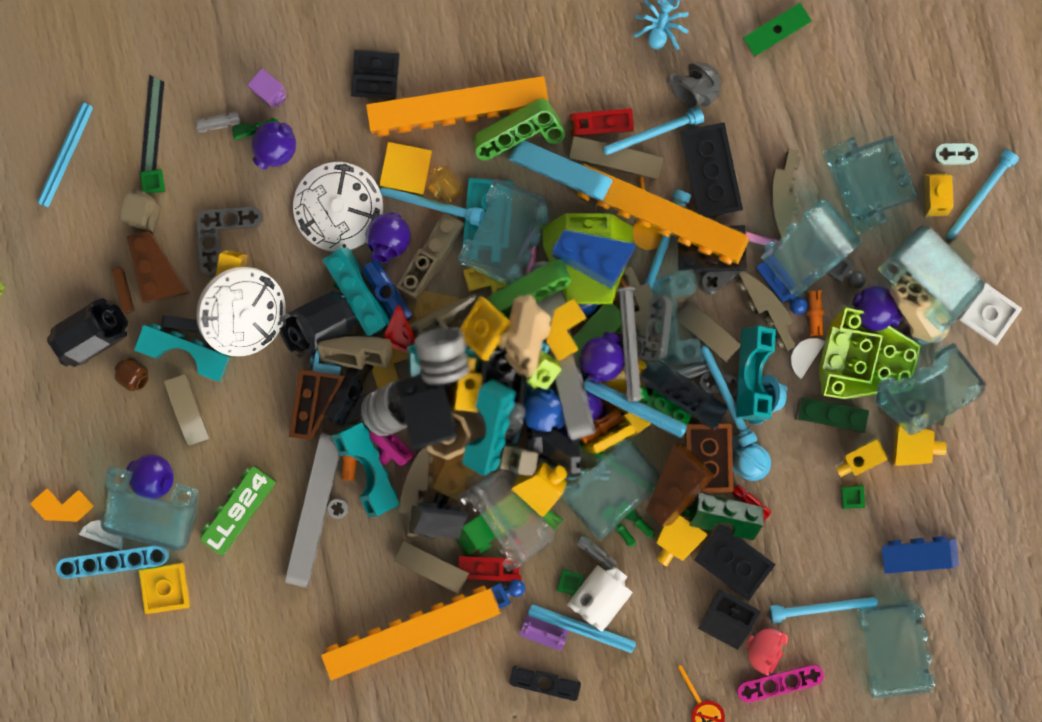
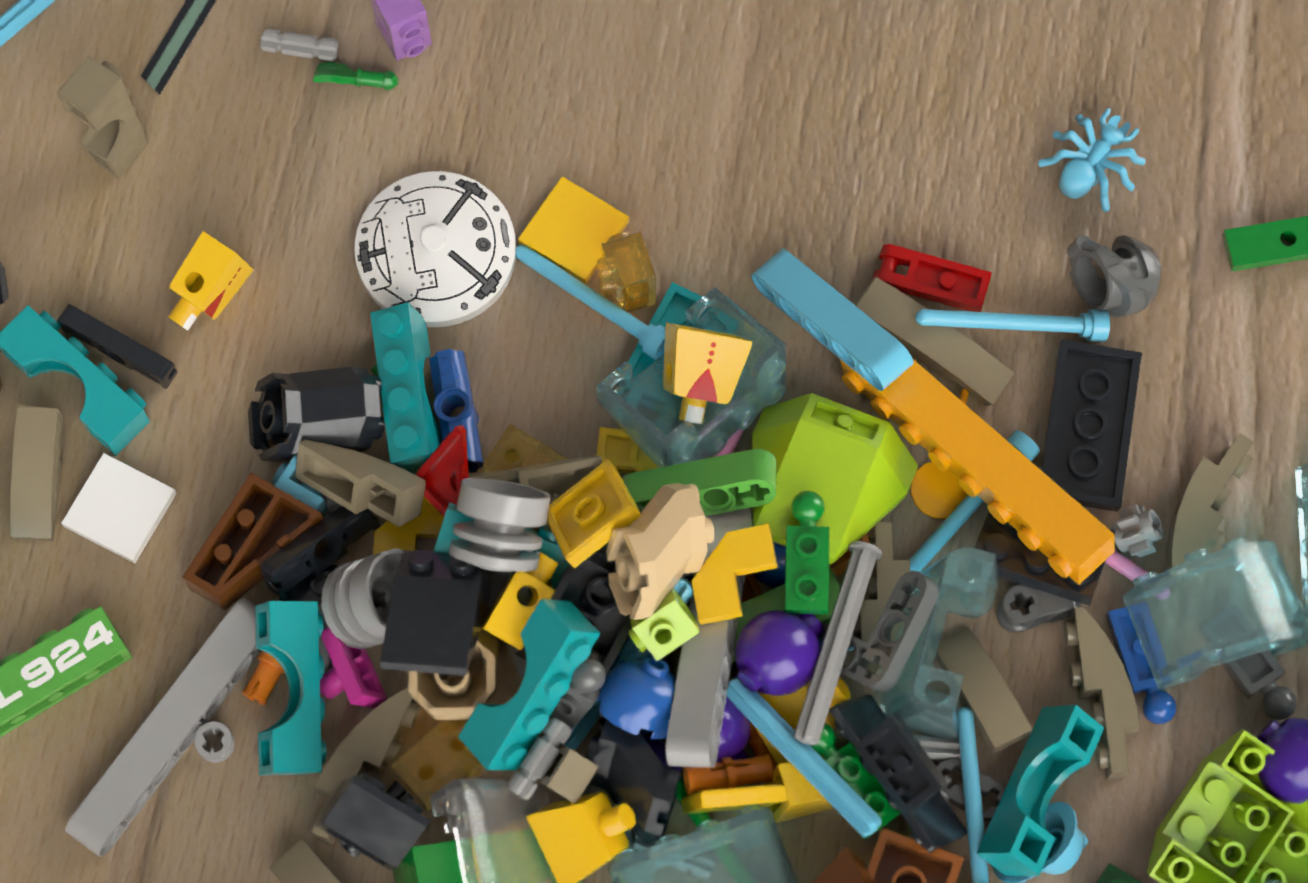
camera: 25 degrees right, 15 degrees down
(123, 290) = (23, 243): reddish brown tile -> none
(152, 181) = (153, 96): green tile -> none
(153, 269) = (86, 229): reddish brown wedge -> none
(213, 231) = (216, 205): dark grey beam -> none
(236, 409) = (119, 508): none -> white tile
(240, 311) = (196, 342): white dish -> none
(273, 145) = (371, 106): dark purple brick -> none
(375, 74) = (587, 67): black slope -> none
(387, 236) = (495, 319): dark purple brick -> none
(431, 257) = (553, 384): dark tan slope -> none
(454, 106) = (701, 161): light orange brick -> none
(490, 143) = (782, 238): bright green beam -> none
(505, 223) = (702, 367): none -> yellow torso
(507, 459) = (540, 758): none -> light grey axle
(594, 255) = (834, 464): blue wedge -> none
(599, 307) = (807, 557): none -> green plate
(755, 218) = (1137, 530): none -> light grey gear
(804, 355) = (1139, 798): white tile -> none
(815, 313) = (1184, 733): orange pin -> none

